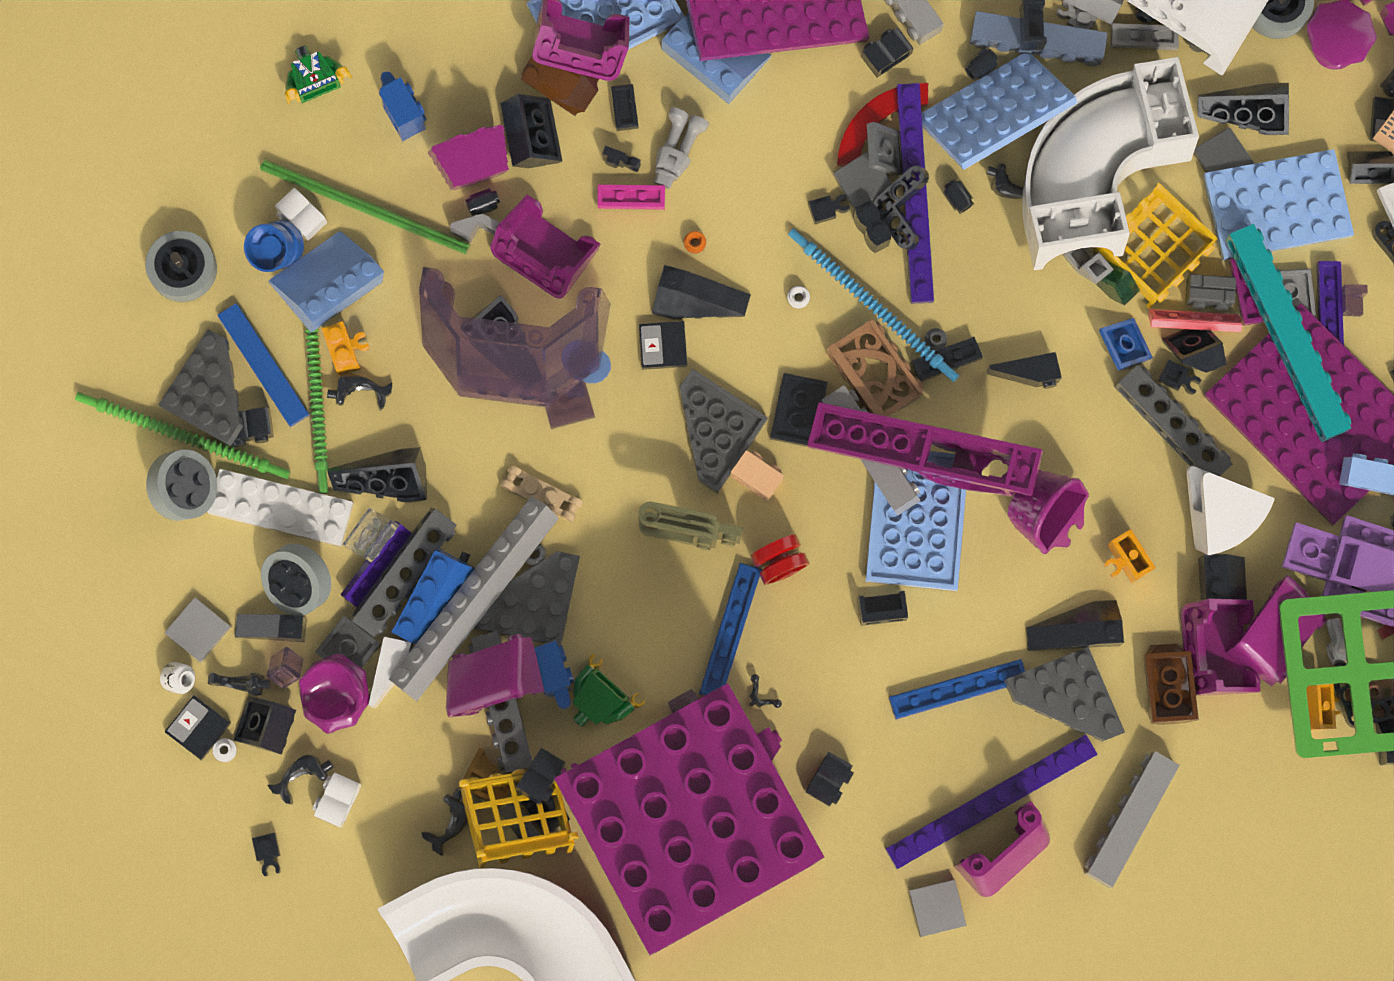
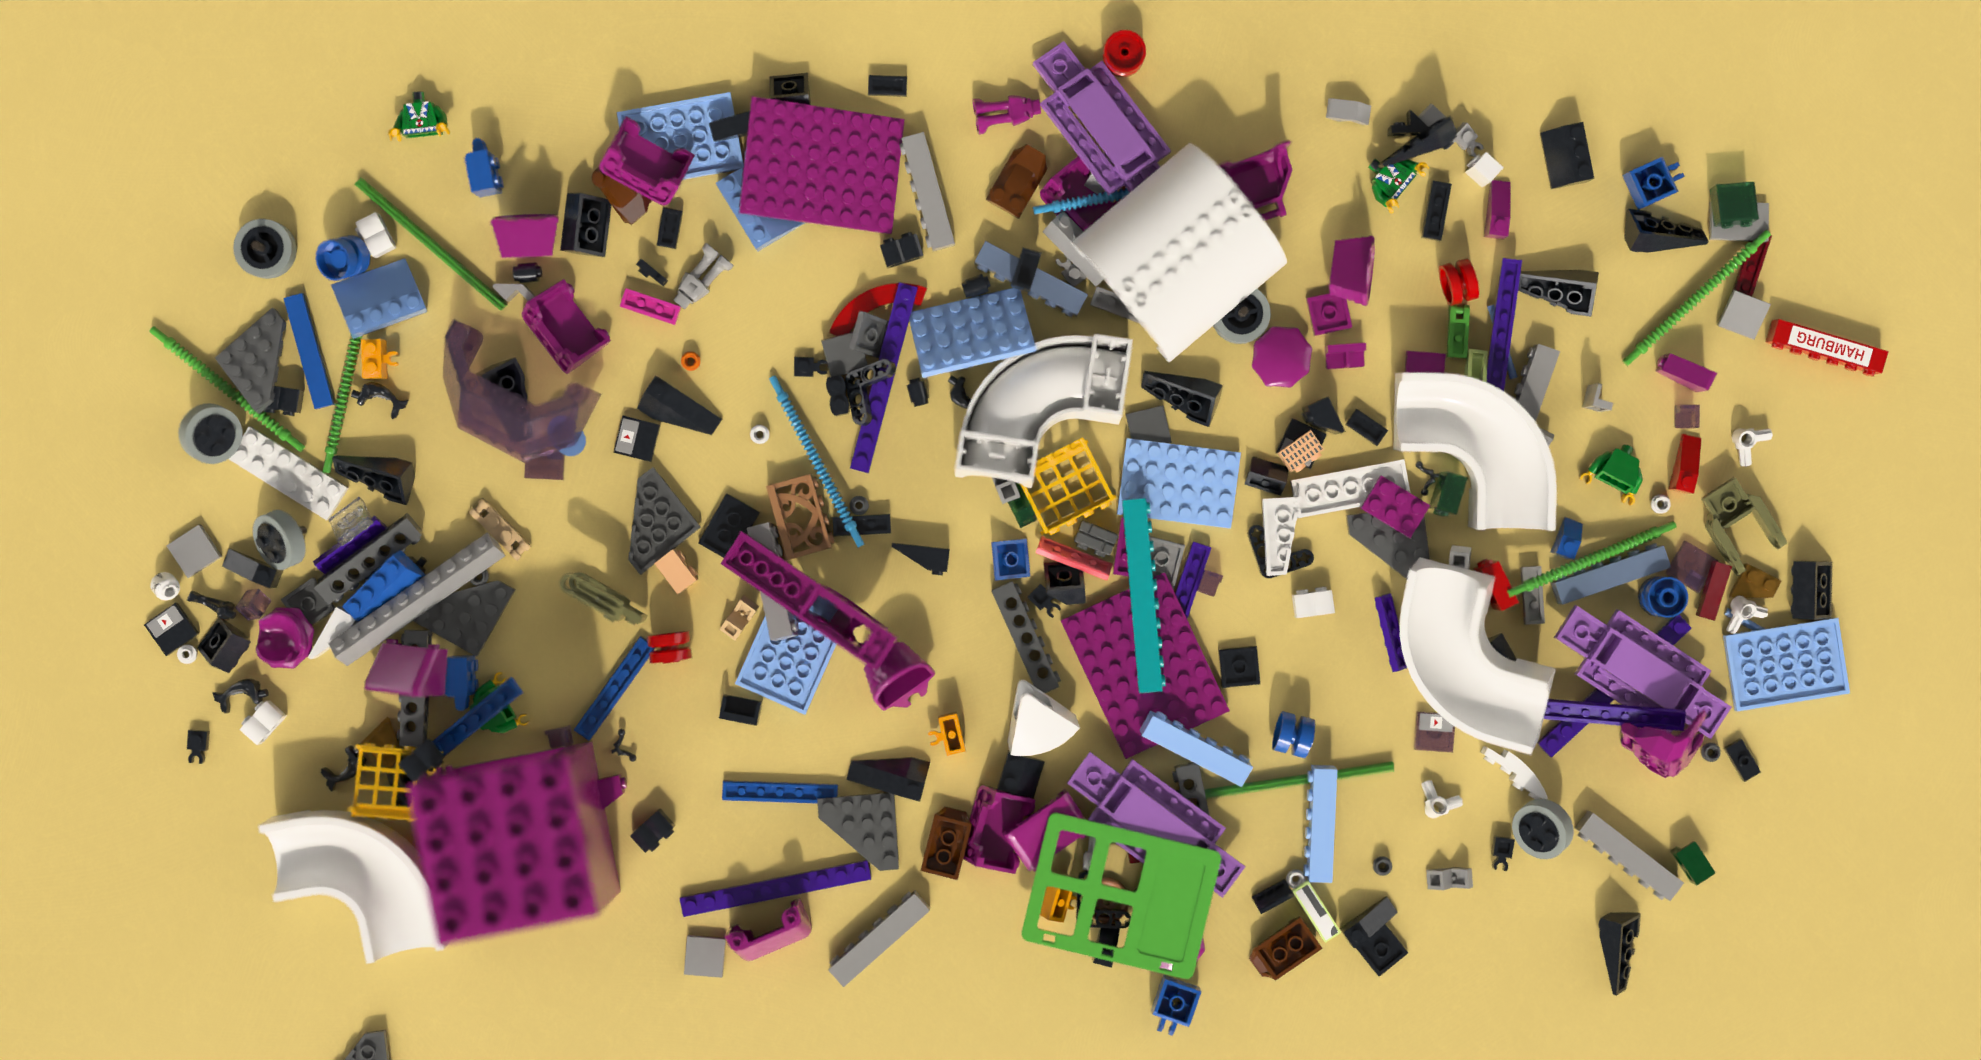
camera: 20 degrees right, 10 degrees up
(590, 703) = (478, 716): none -> blue tile
(845, 505) = (739, 617): none -> tan slope

